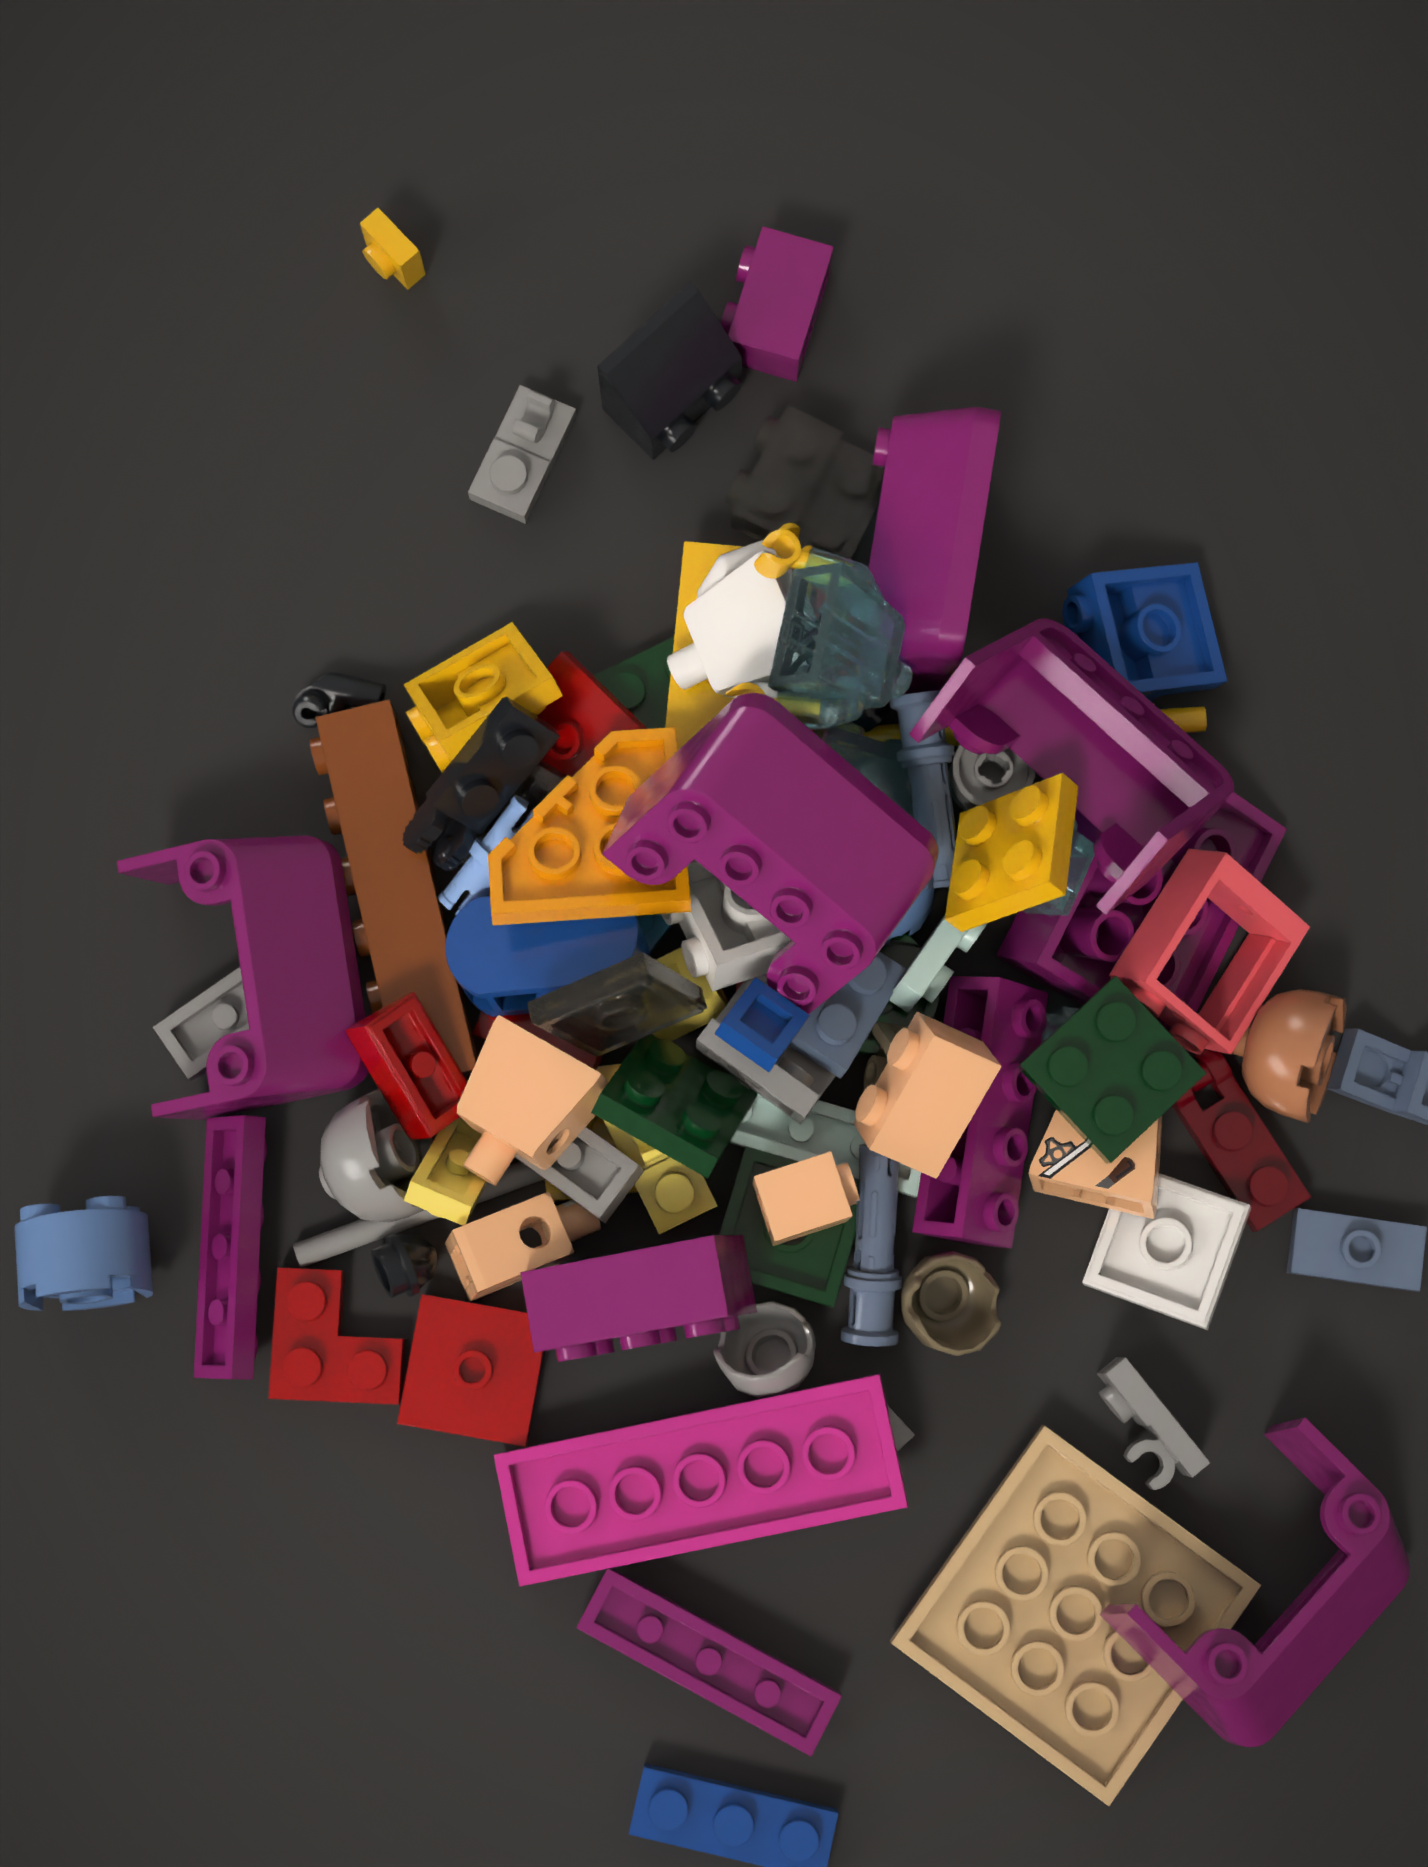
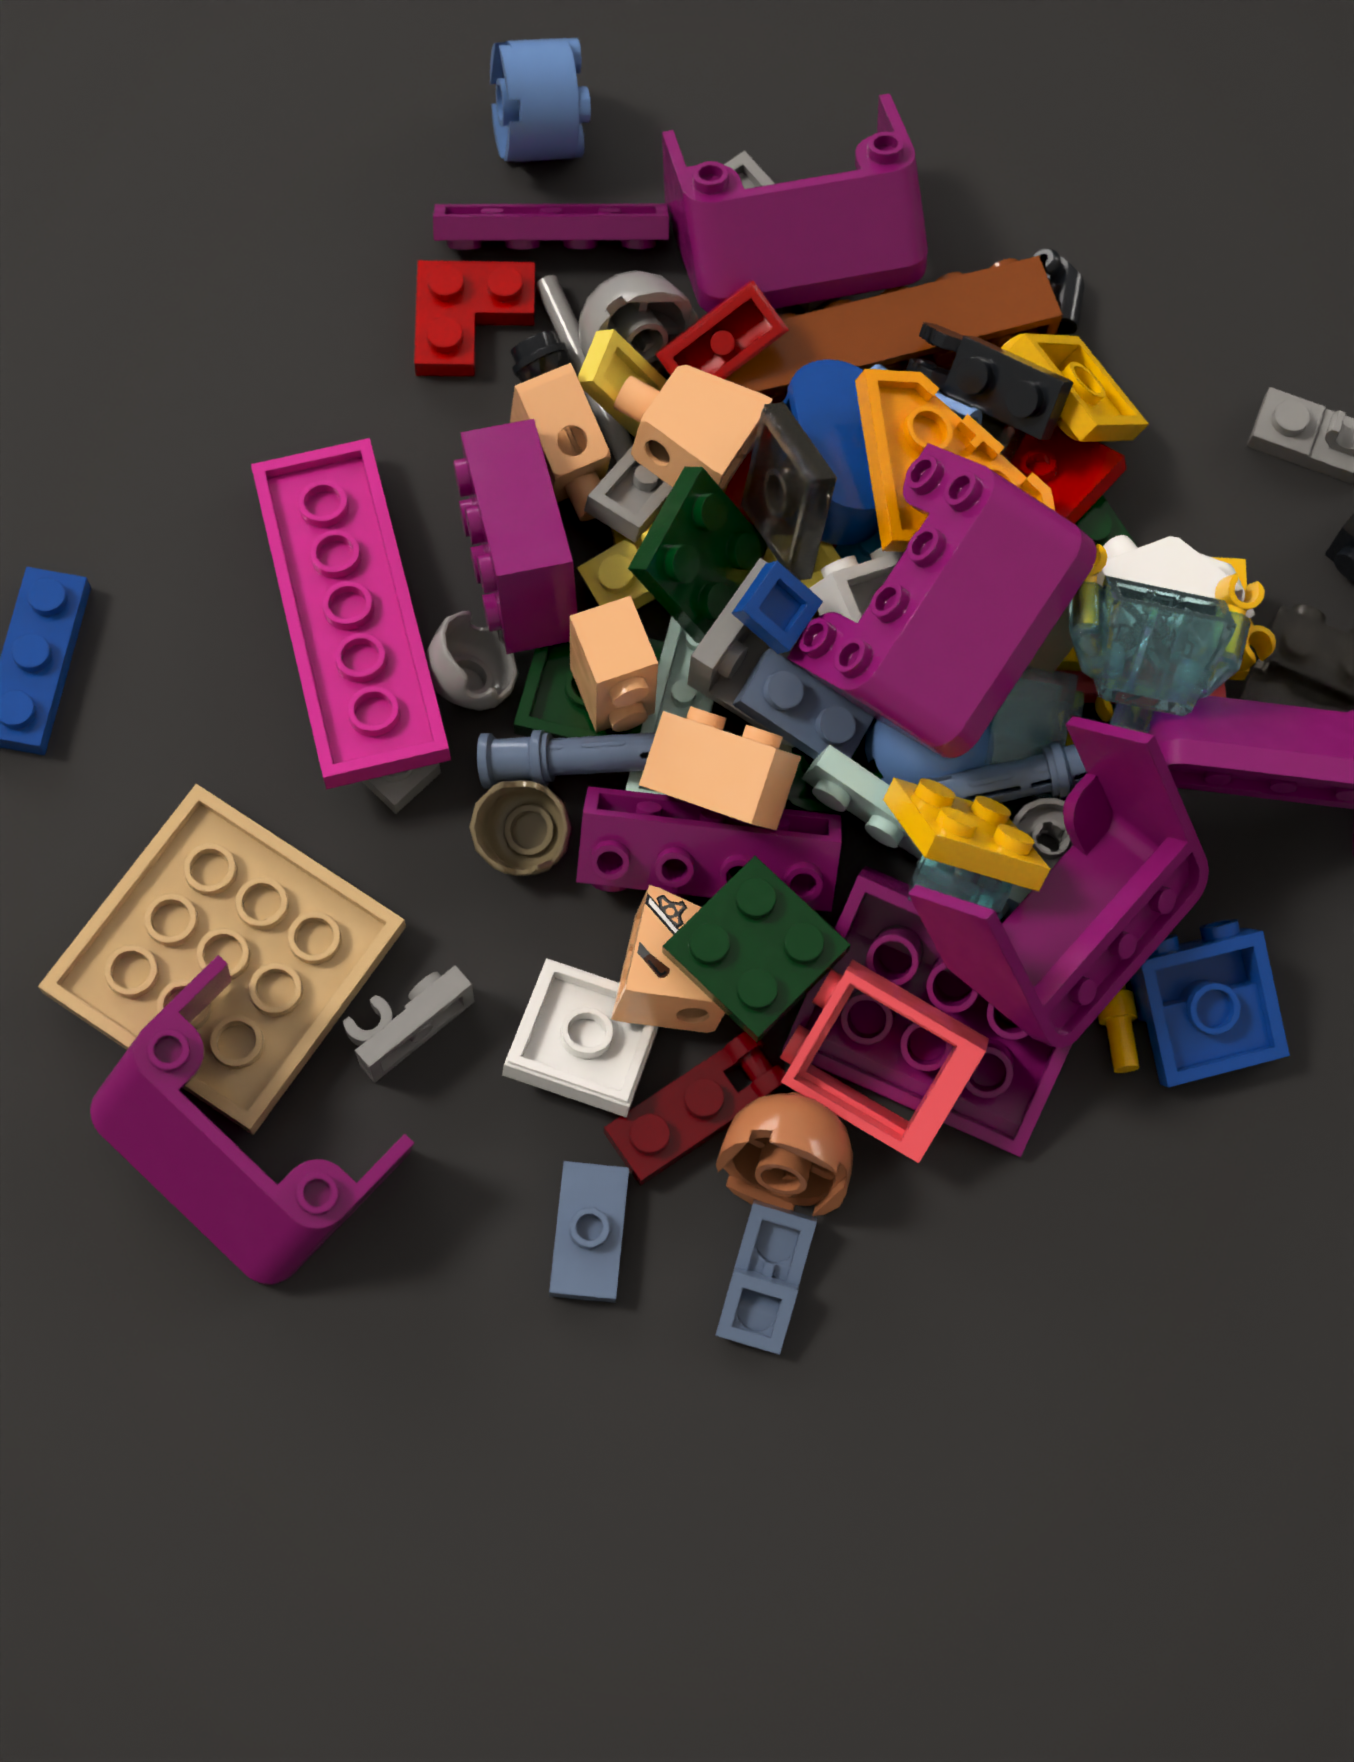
camera: 80 degrees right, 10 degrees down
(471, 1371) = (427, 417): red plate -> none
(709, 1661) = (181, 631): magenta plate -> none

